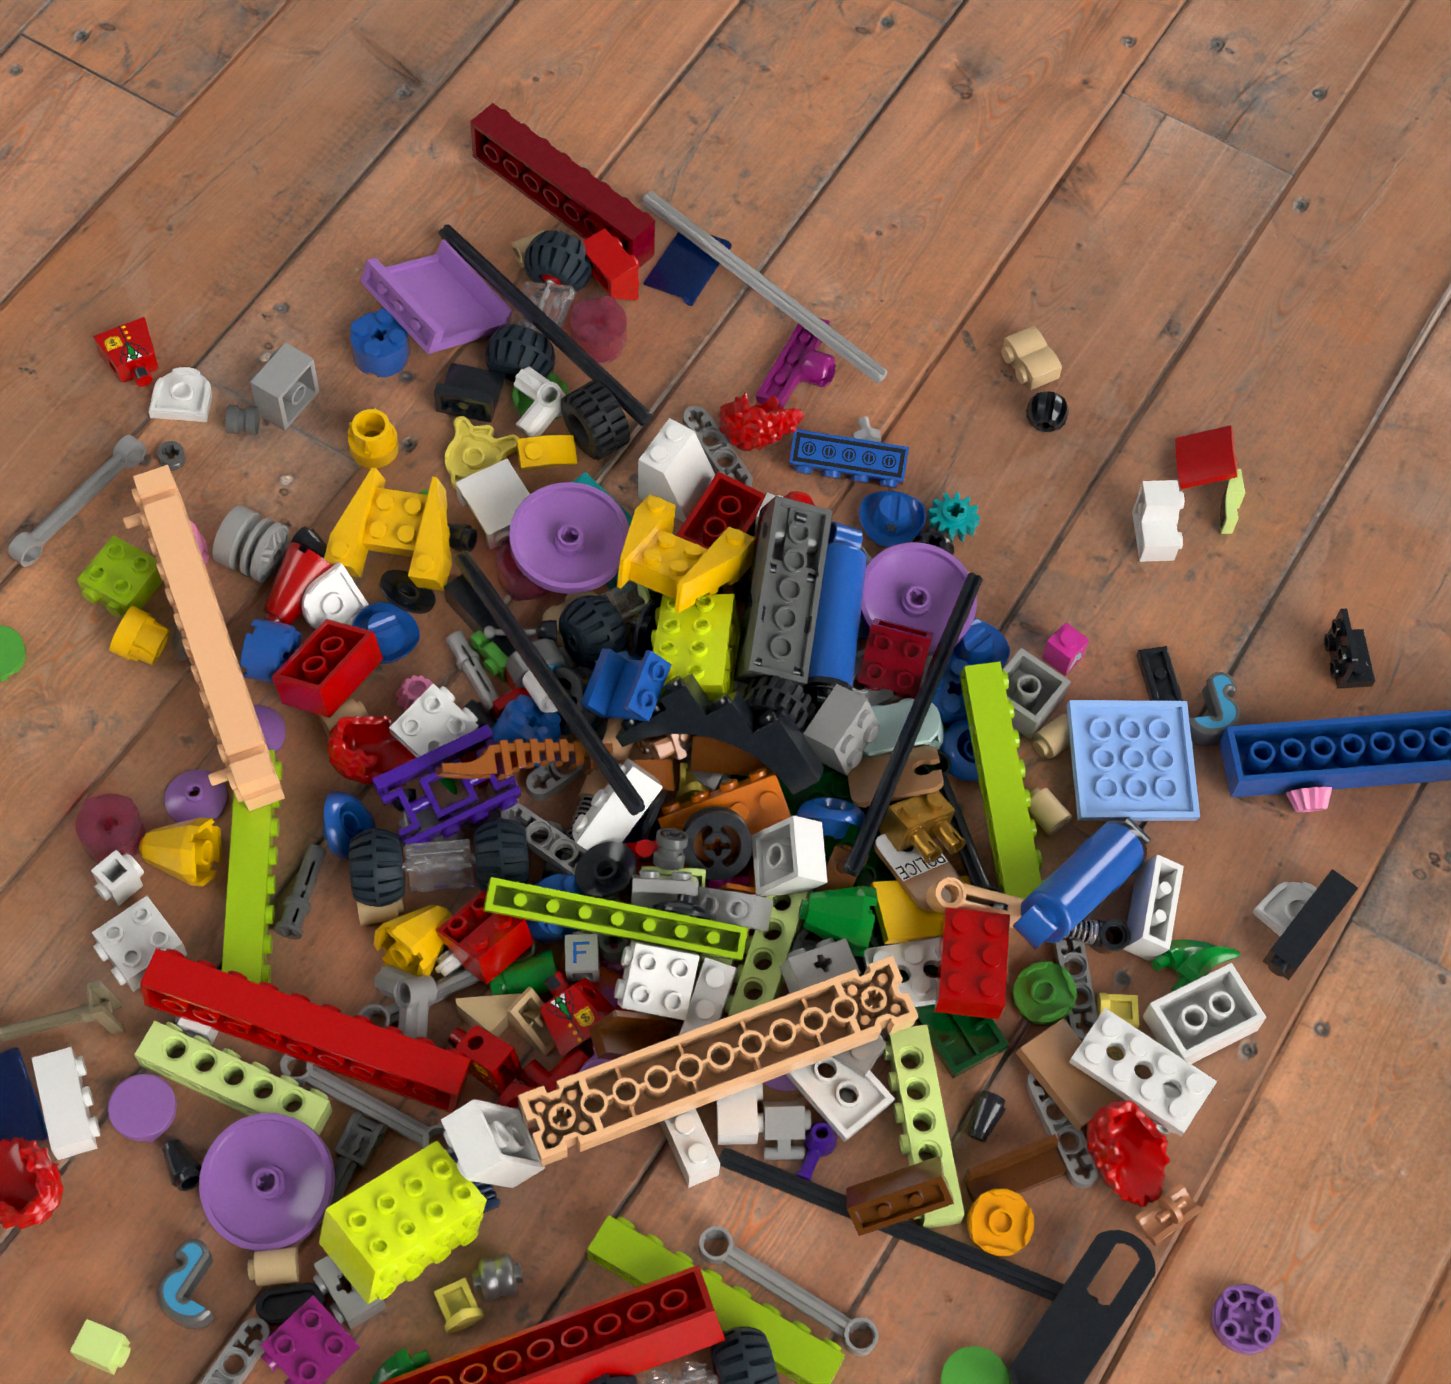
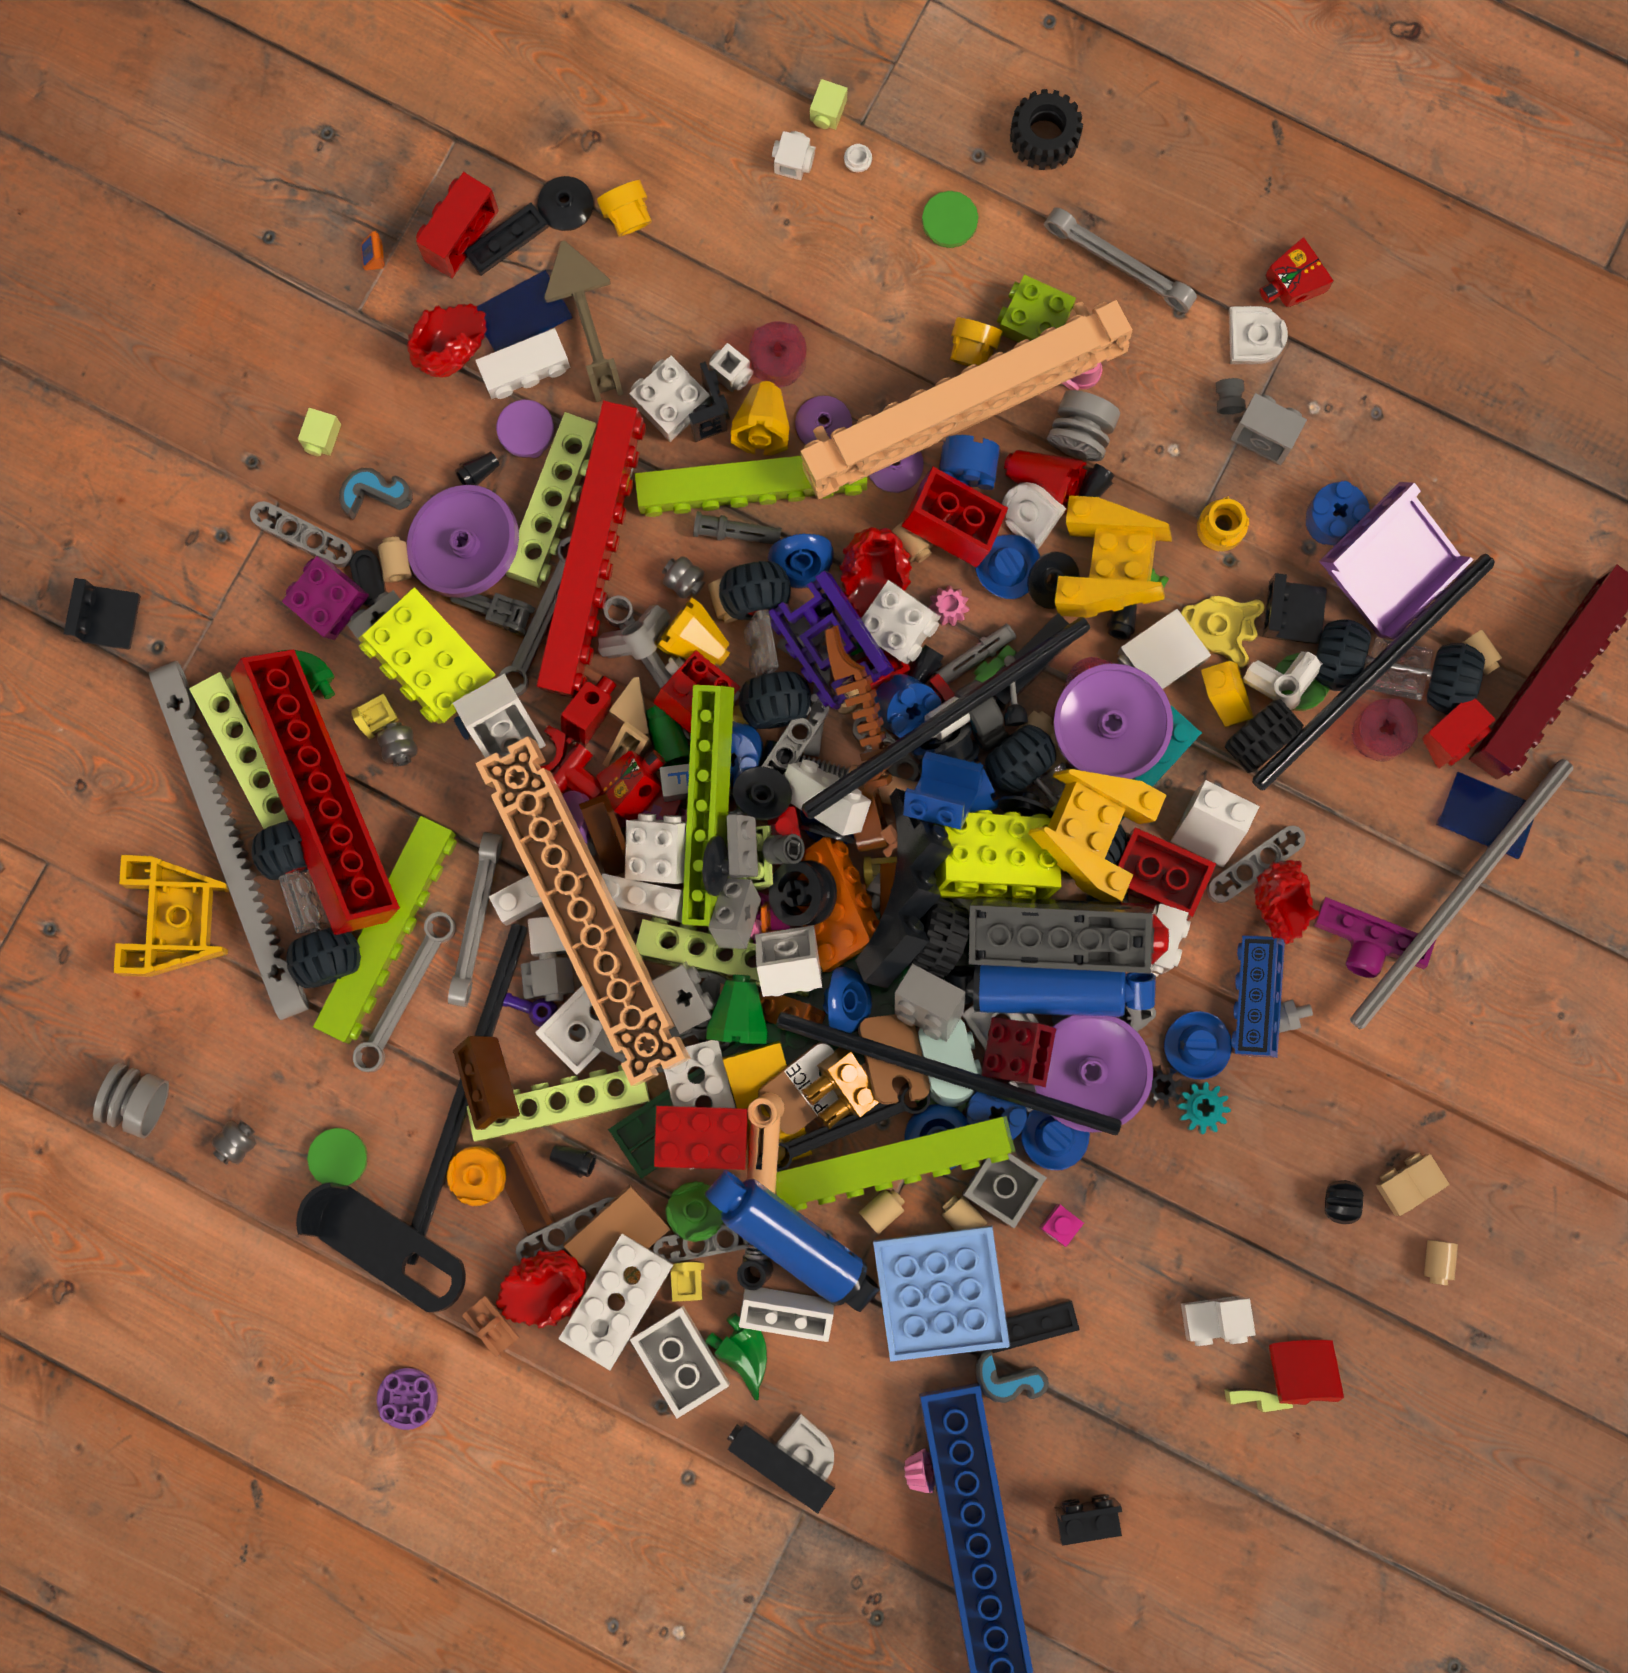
camera: 90 degrees right, 20 degrees up
(164, 893) = (711, 420): none -> black bracket
(171, 447) = (1184, 327): dark grey bush -> none
(347, 948) = (683, 577): none -> flat silver piece
(783, 1222) = (462, 981): none -> light grey piece
(1103, 344) = (1440, 1262): none -> tan brick

